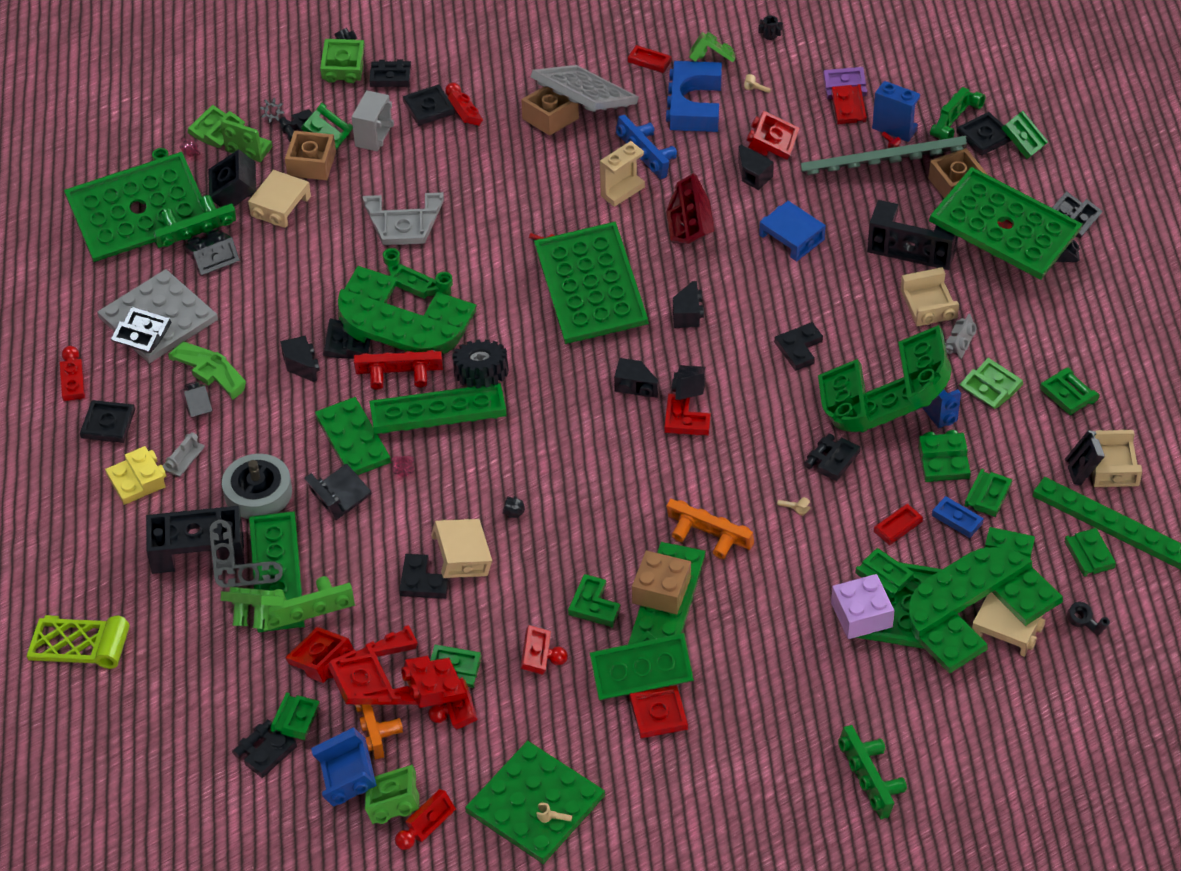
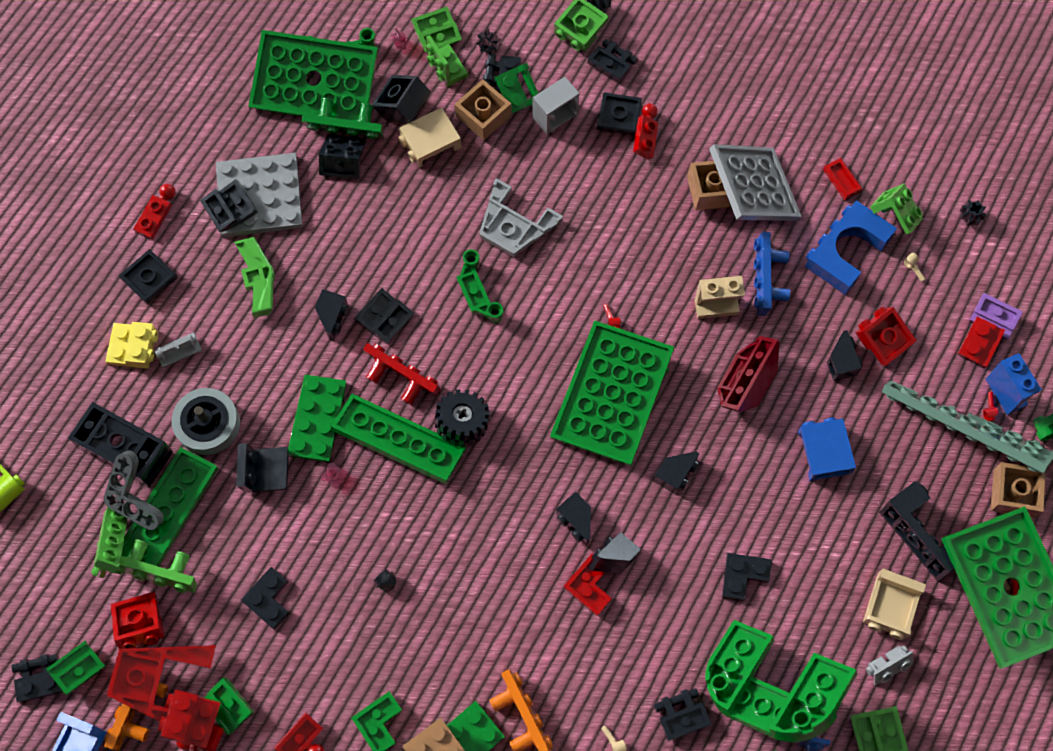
camera: 35 degrees right, 20 degrees up
(196, 399) = (224, 301): slope -> none
(367, 315) = (422, 336): green plate -> none
(462, 548) = (313, 595): tan panel -> none

